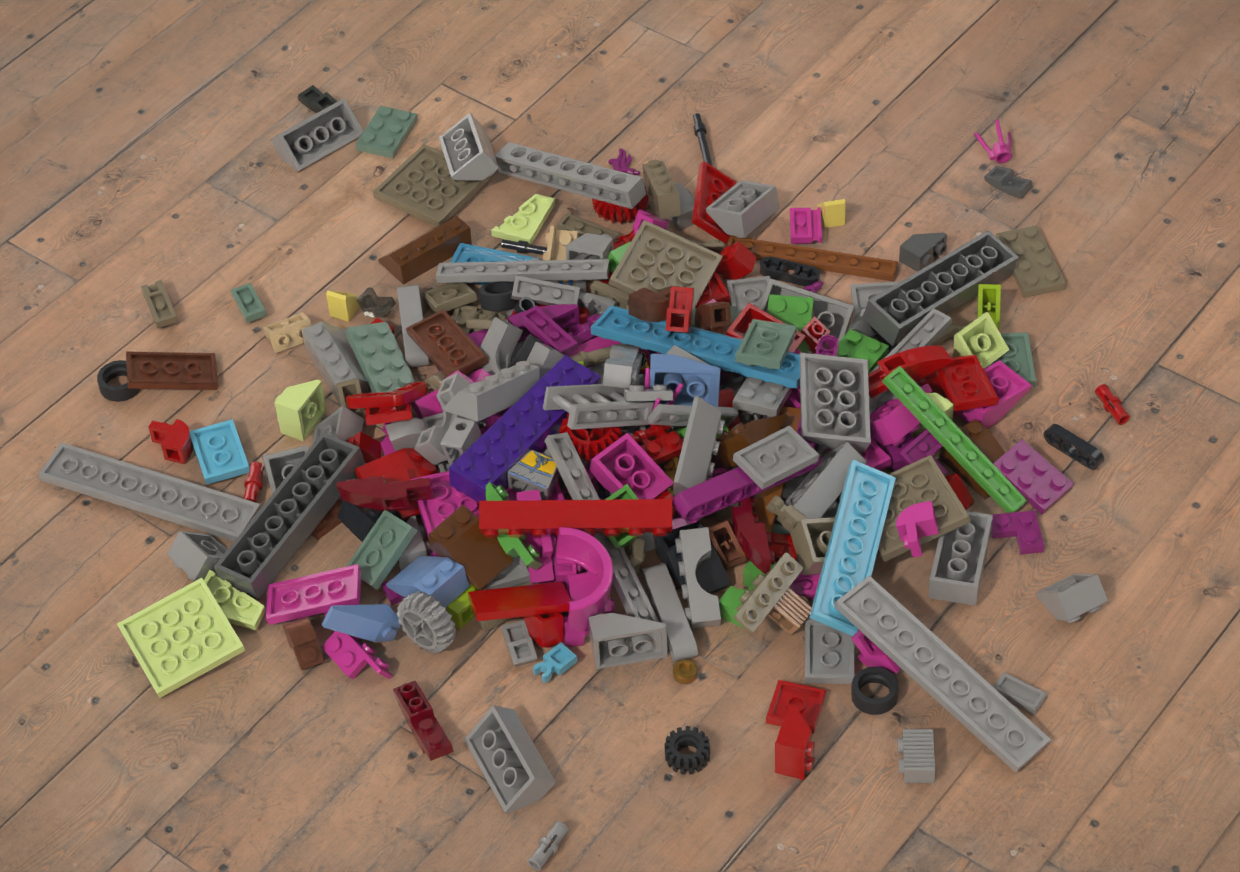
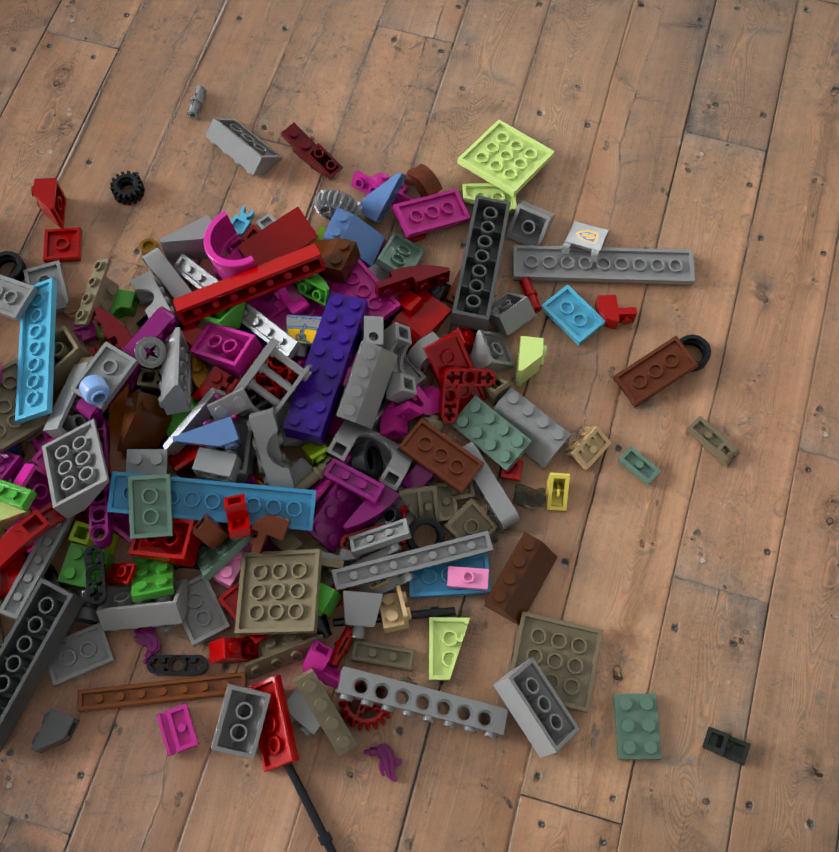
camera: 155 degrees right, 20 degrees up
(149, 520) = (586, 238): none -> flag
(317, 135) = (698, 691): light grey slope -> none
(475, 252) = (467, 578): none -> bright pink plate
(716, 467) = (159, 351): none -> light grey gear
(788, 430) = (94, 389): none -> light blue head
(833, 213) = (157, 759): light yellow slope -> none
(843, 324) = (89, 561): none -> black beam

